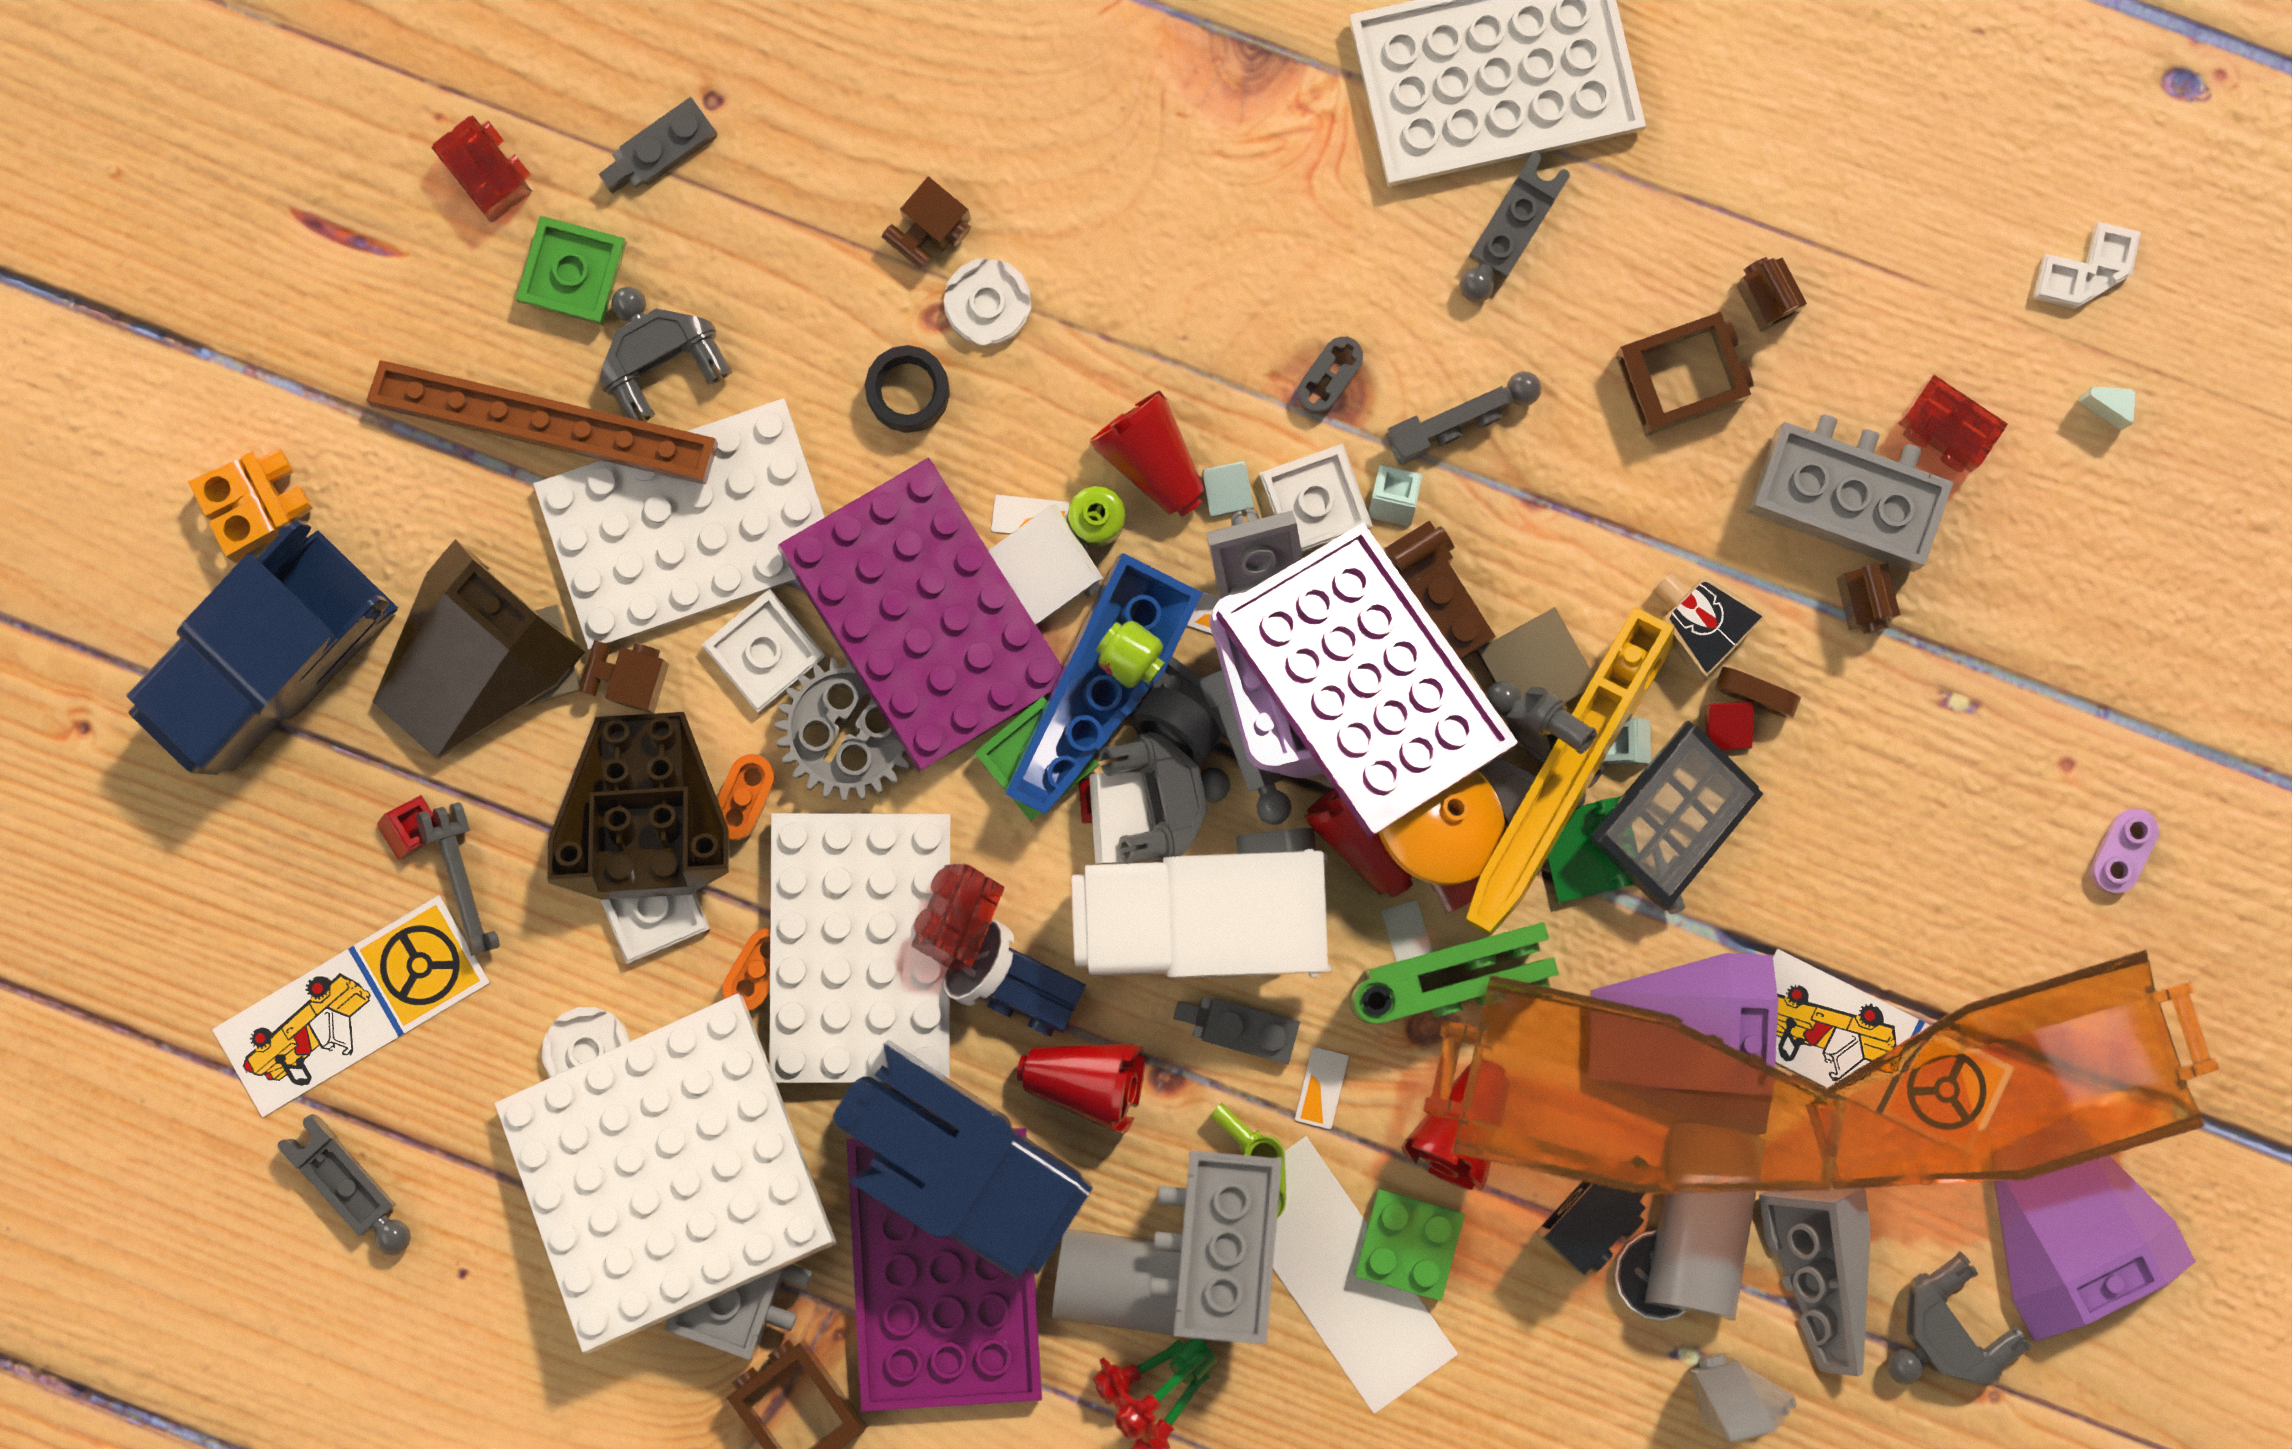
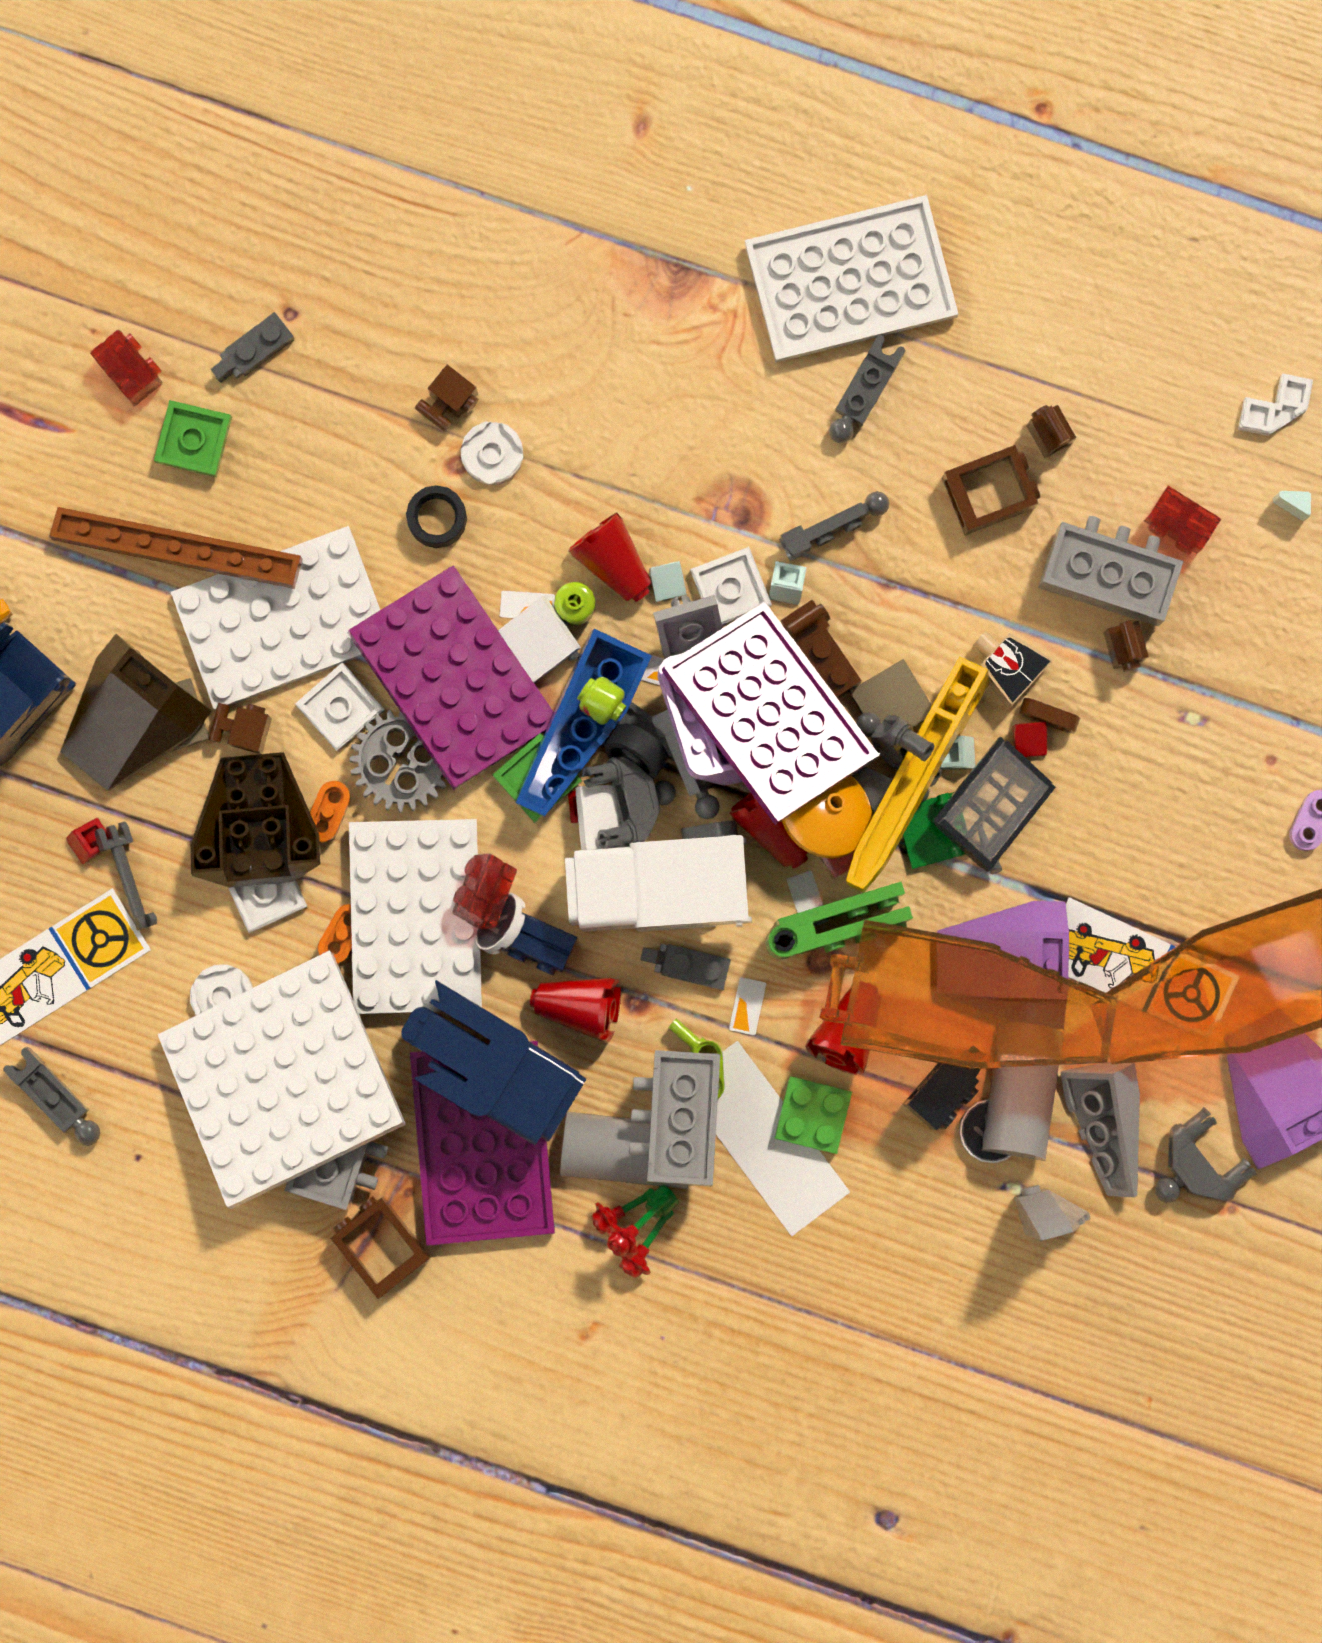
camera: 10 degrees left, 0 degrees up
(650, 342) = (252, 488): dark grey connector -> none
(1338, 381) = (744, 502): dark grey beam -> none

